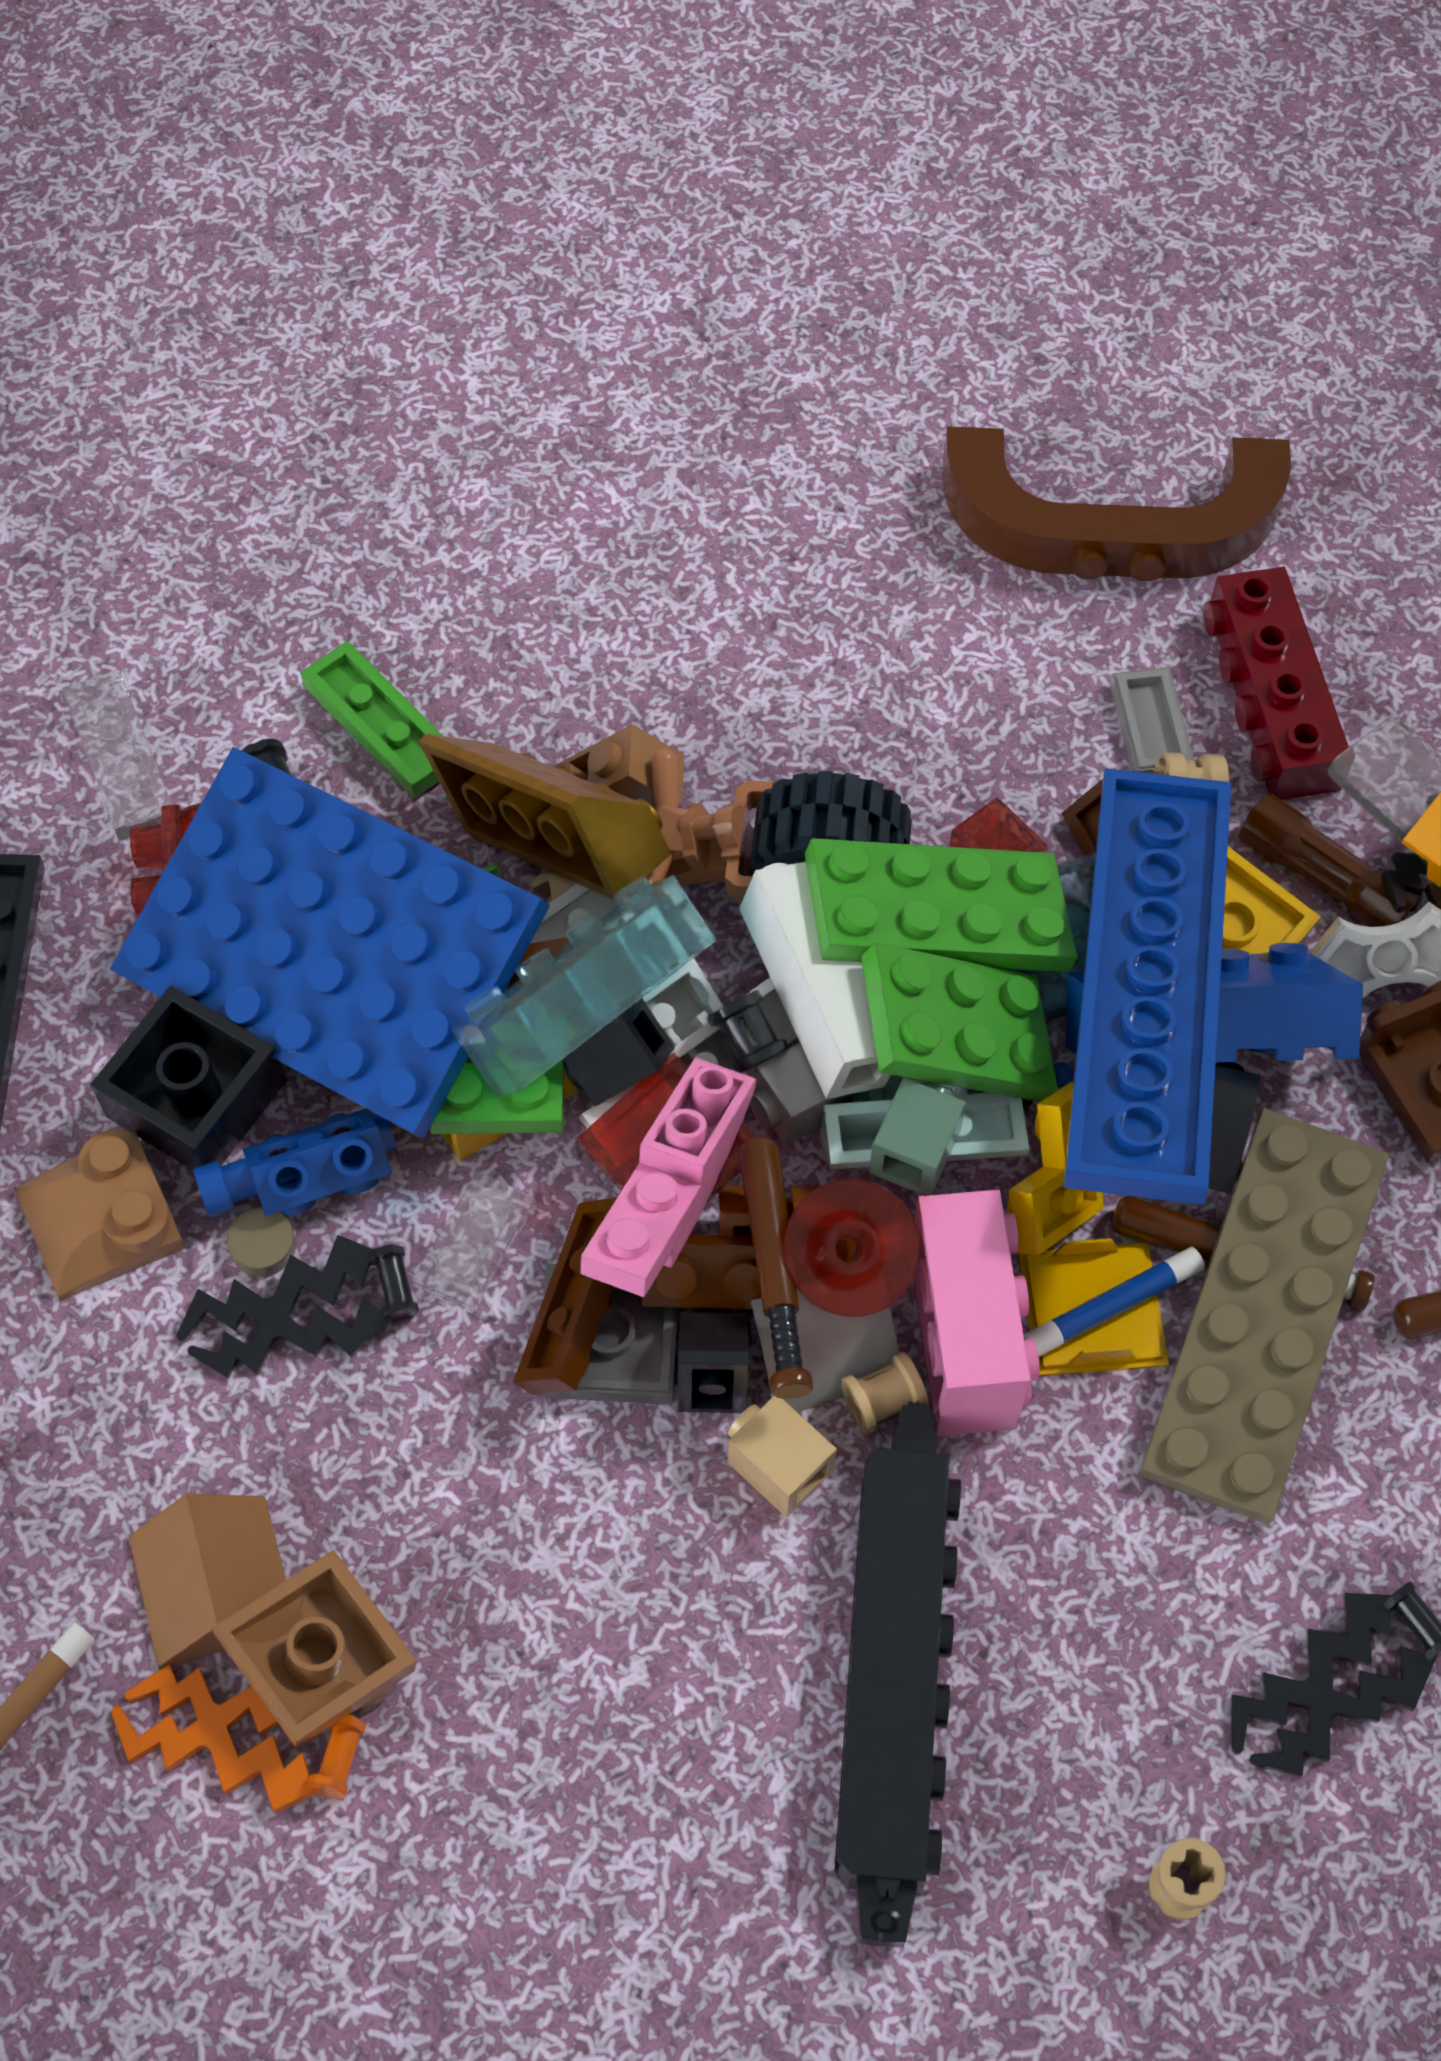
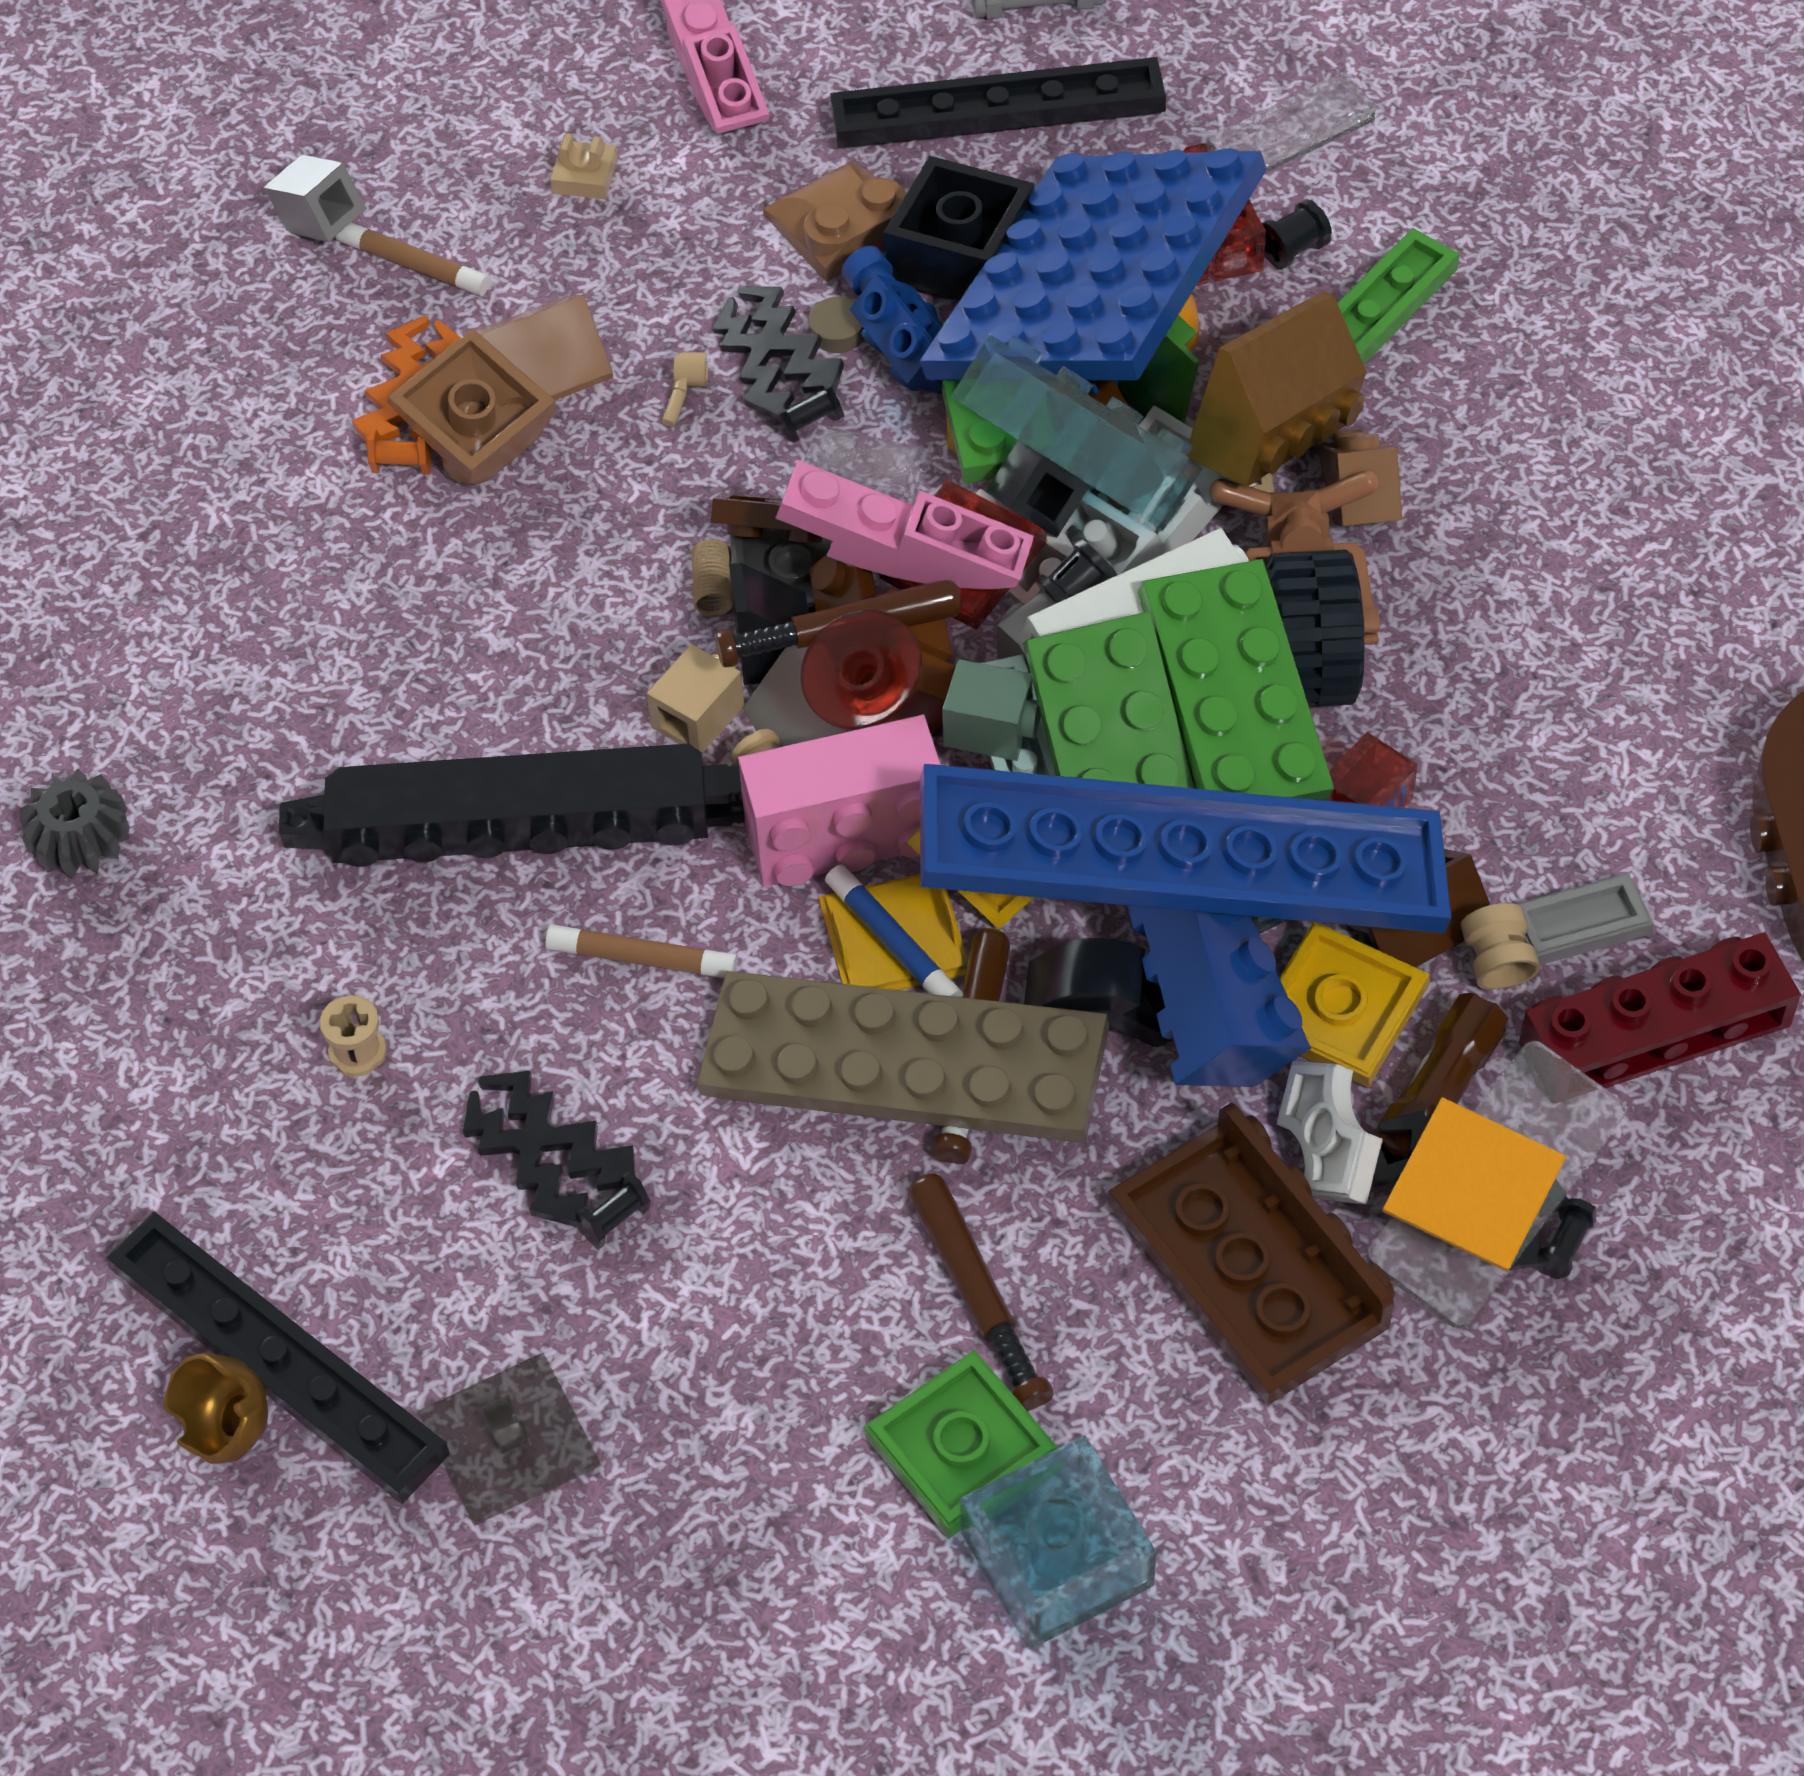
camera: 85 degrees right, 5 degrees down
(292, 1413) = (688, 371): none -> tan hand
(603, 1411) = (702, 582): none -> tan piece
(1090, 1561) = (640, 951): none -> medium nougat bar

